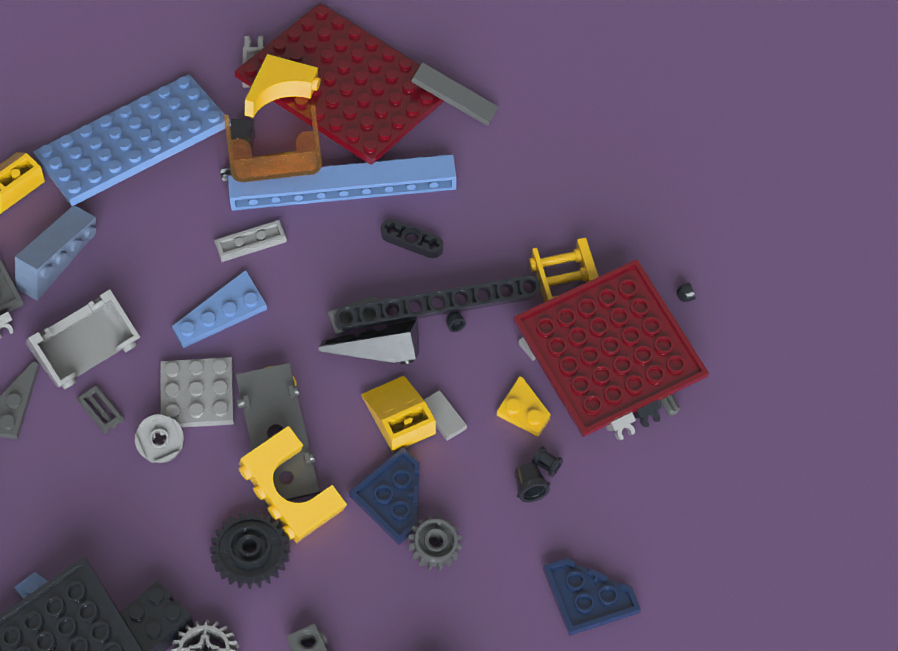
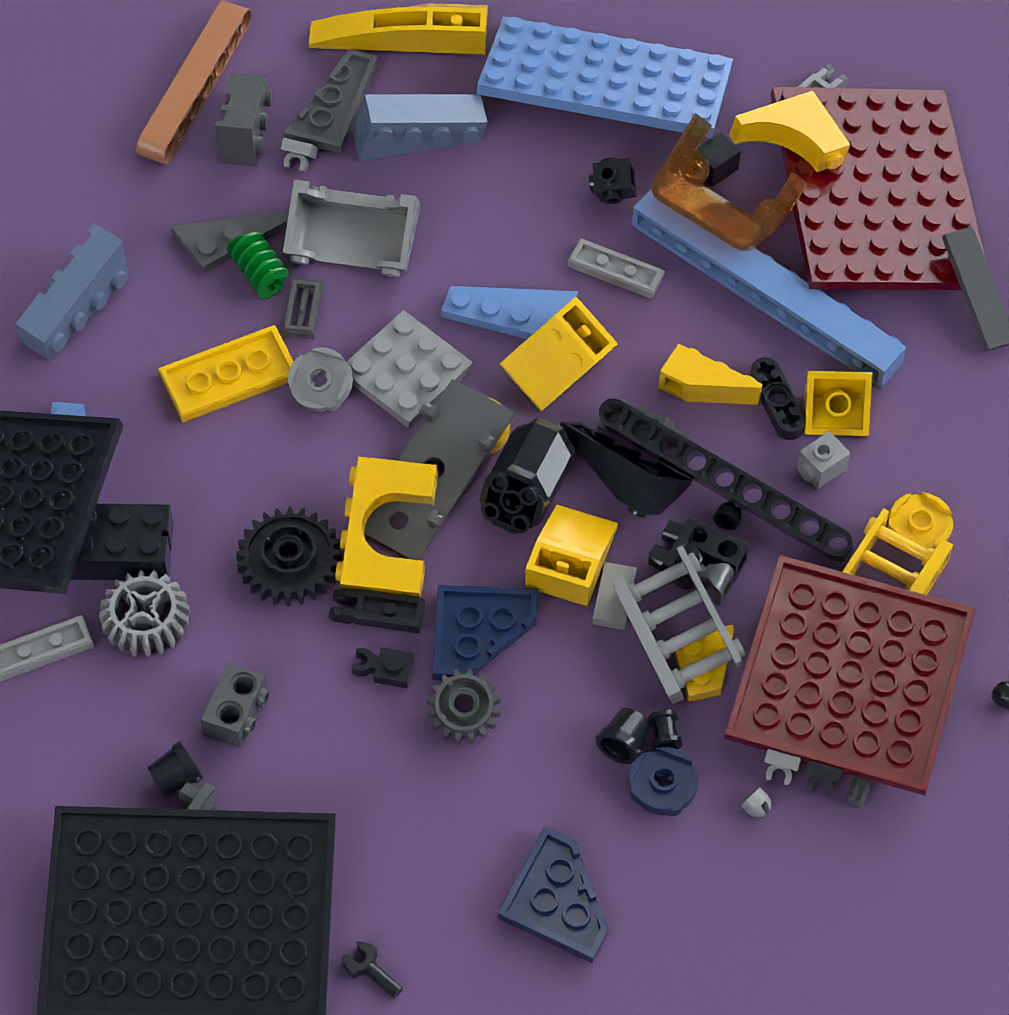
camera: 45 degrees right, 0 degrees up
(49, 406) = (258, 264): none -> green piece
(98, 482) = (227, 373): none -> yellow tile
(200, 185) = (613, 180): none -> black brick
(277, 310) = (558, 353): none -> yellow slope
(330, 534) = (379, 609): none -> black hinge
(334, 391) = (526, 476): none -> black brick
(364, 261) = (701, 379): none -> yellow slope
(367, 559) = (389, 668): none -> black plate
(447, 214) = (837, 403): none -> yellow slope
(460, 355) = (718, 551): none -> black hips
(472, 250) = (823, 460): none -> light grey brick
(479, 414) = (660, 651): none -> light grey fence
(551, 239) = (921, 519): none -> yellow tile
(569, 500) = (667, 799): none -> dark blue plate
(630, 456) = (757, 804): none -> light grey hinge

